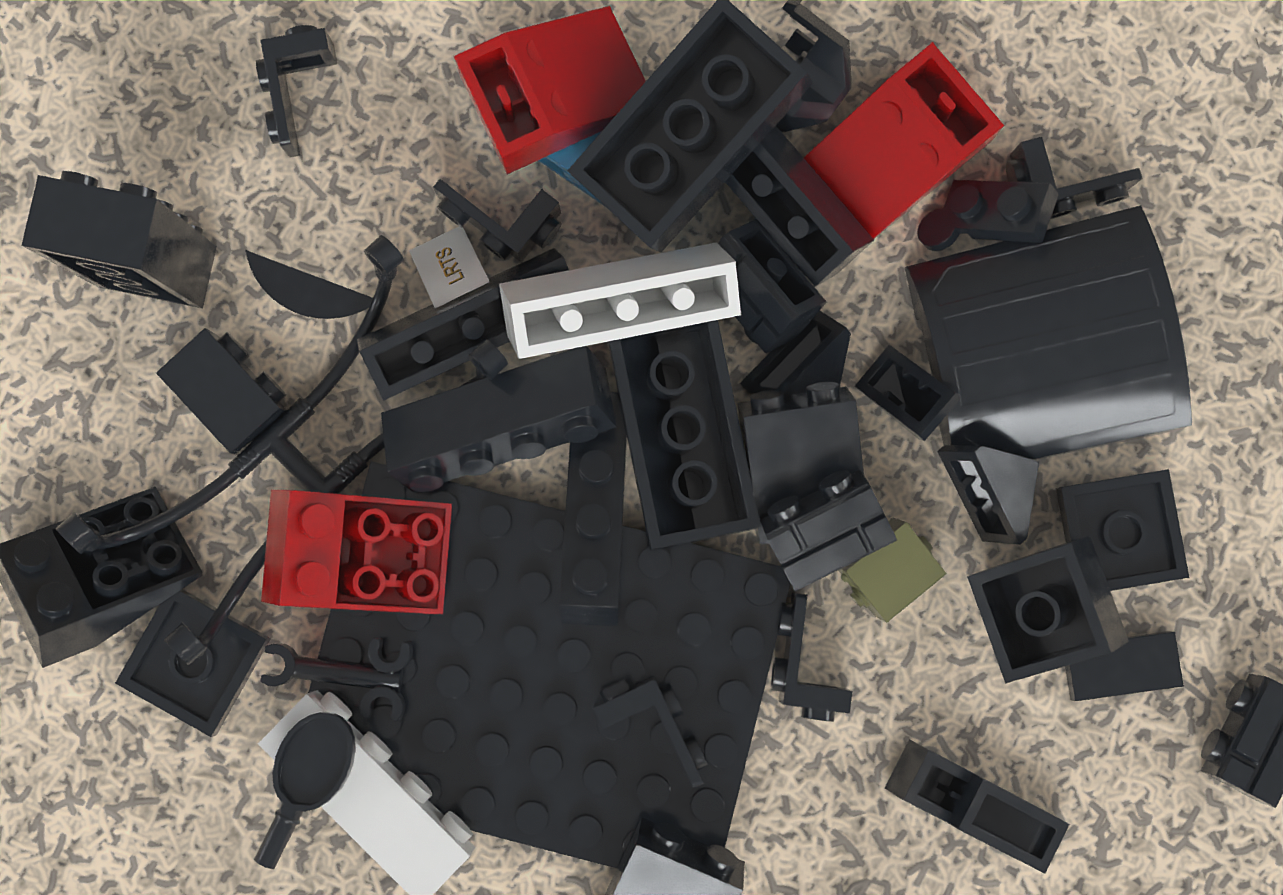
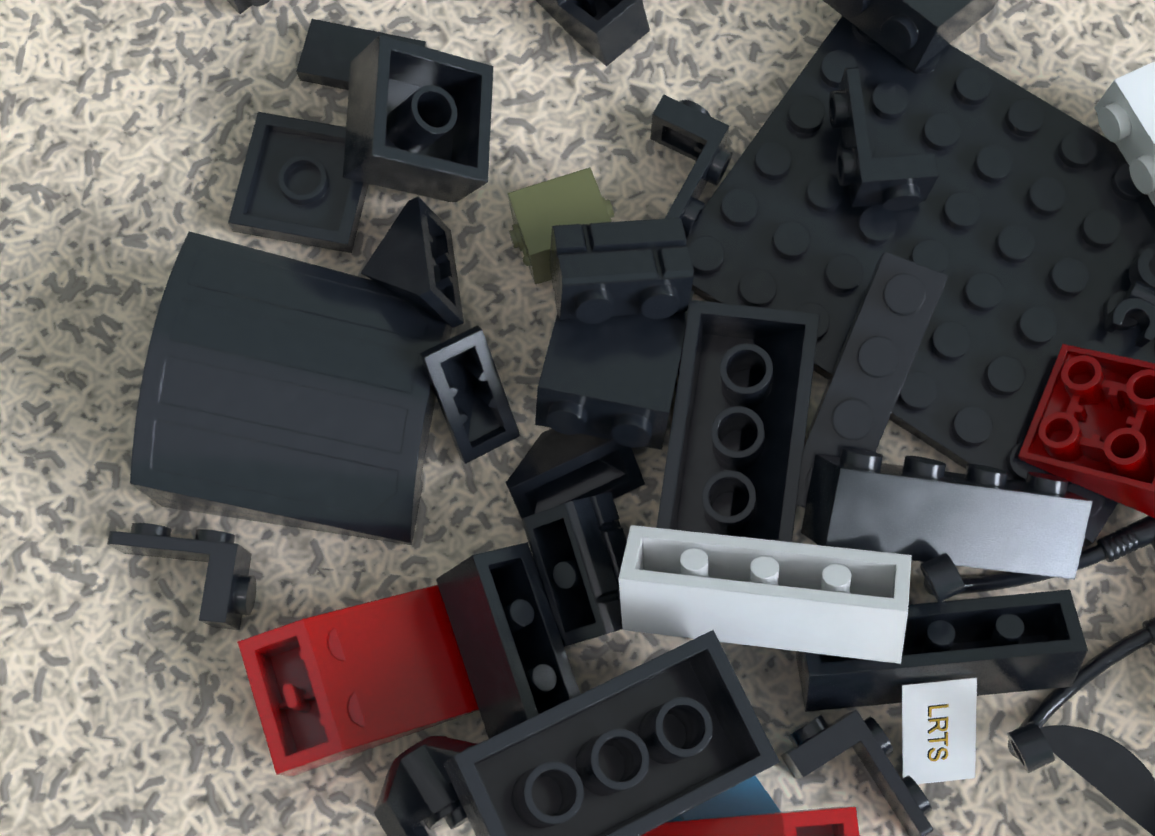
camera: 155 degrees left, 10 degrees down
(990, 213) = (294, 559): black hinge -> none

